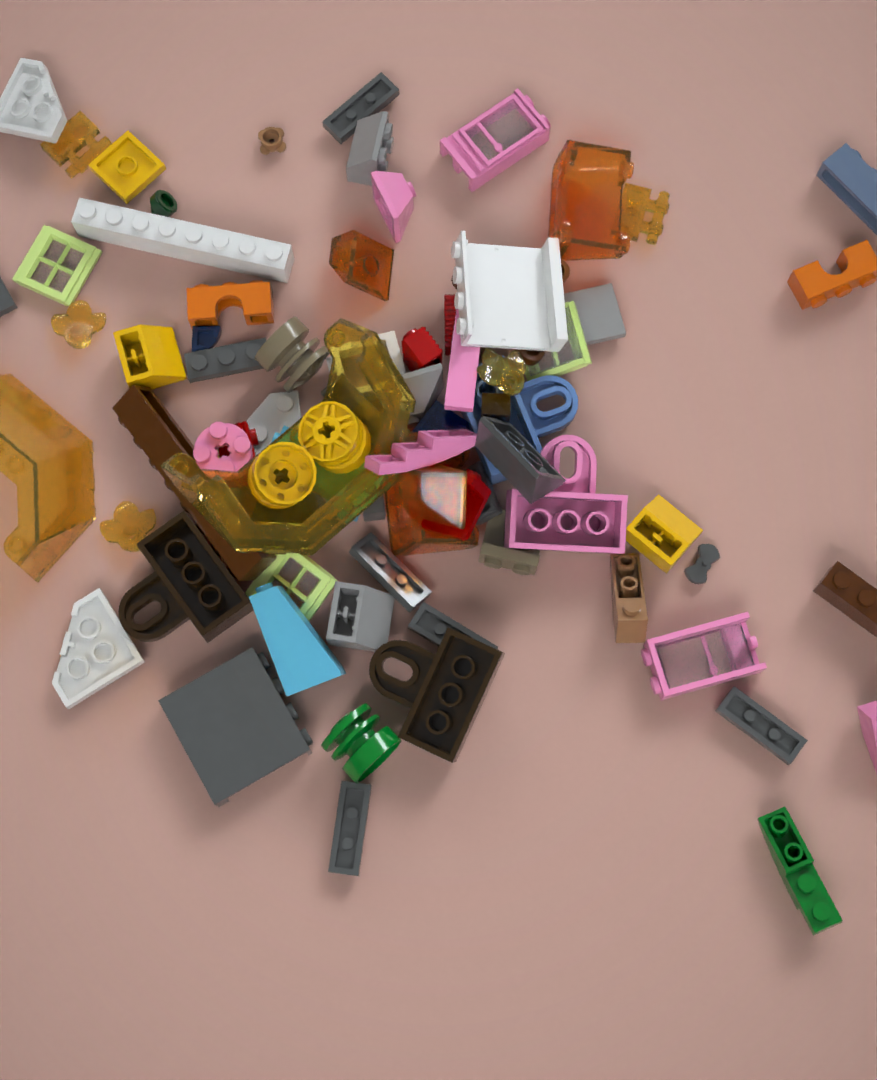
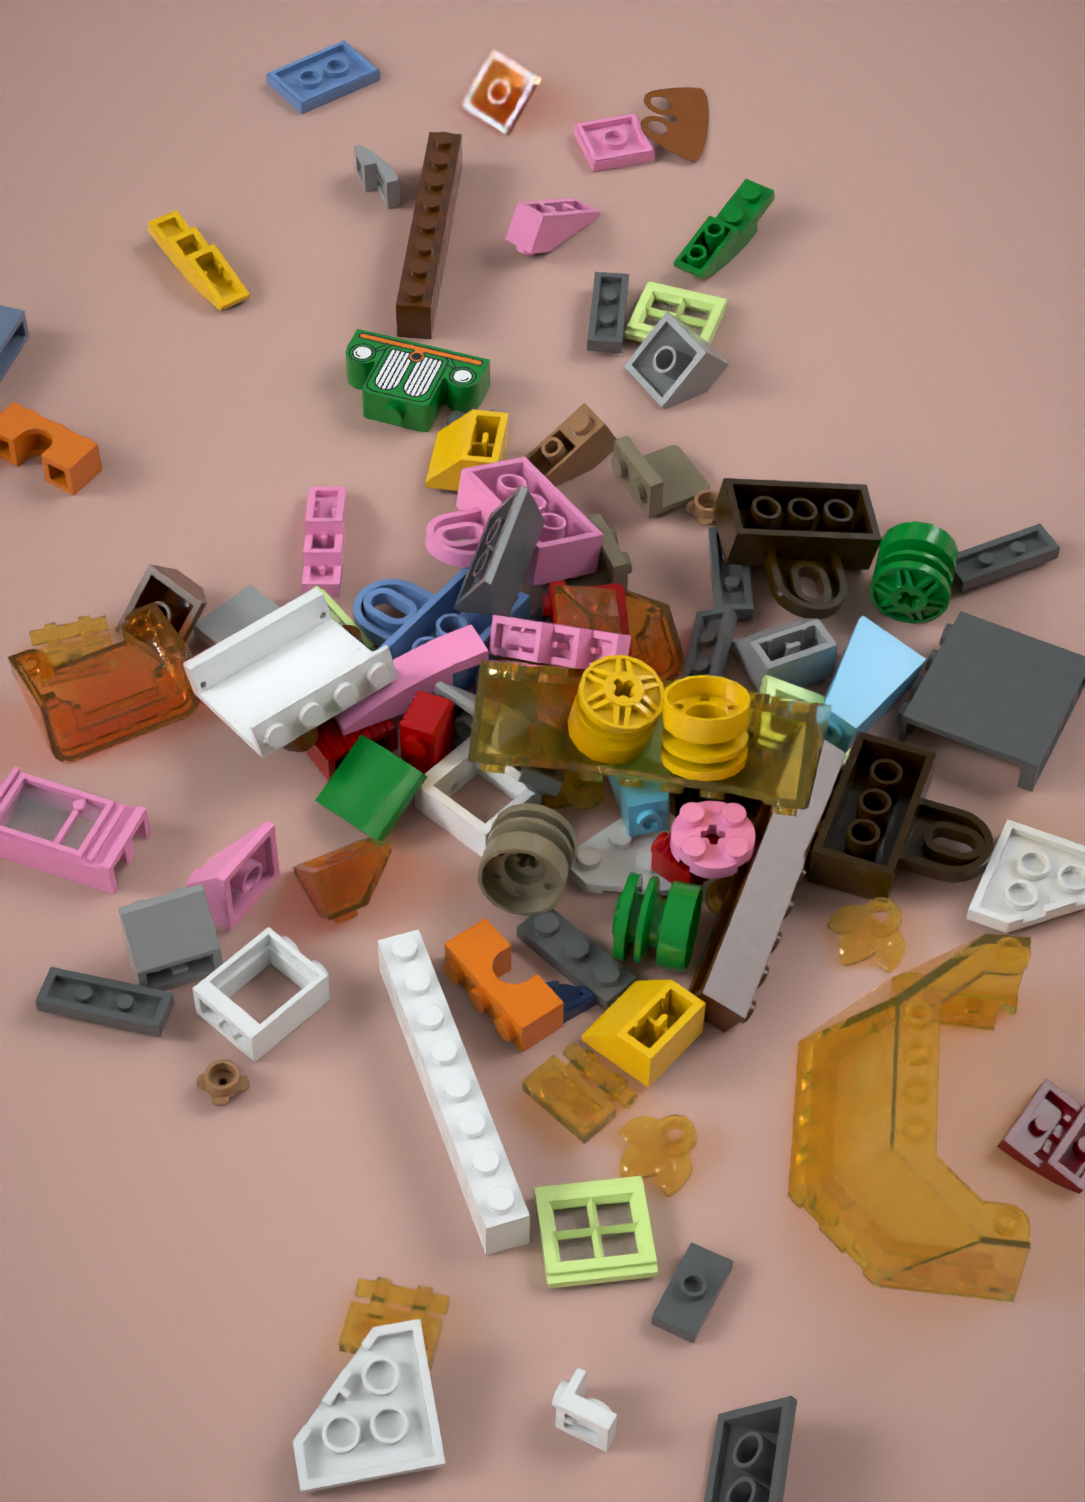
camera: 125 degrees left, 25 degrees down
(127, 166) = (384, 1231): yellow plate -> none
(137, 298) = (571, 1099): none -> clear yellow plate
(163, 203) = (412, 1148): dark green tile -> none
(204, 399) = (657, 922): none -> green wheel
(304, 159) = (256, 1039): none -> white window
(409, 308) = (371, 788): none -> green slope
(496, 406) = (445, 616): dark brown slope -> none
(503, 372) = (403, 628): clear yellow plate -> none
(522, 657) = (703, 506): none -> medium nougat plate
(567, 647) = (656, 479): none -> dark tan bracket
(634, 274) = (174, 594): none -> reddish brown slope
(643, 403) = (324, 539): none -> bright pink slope
(672, 734) = (675, 363): none -> light grey slope
(701, 656) = (577, 371): door -> none
(728, 774) = (694, 309): none -> yellowish green piece
(764, 540) = (411, 381): none -> brick

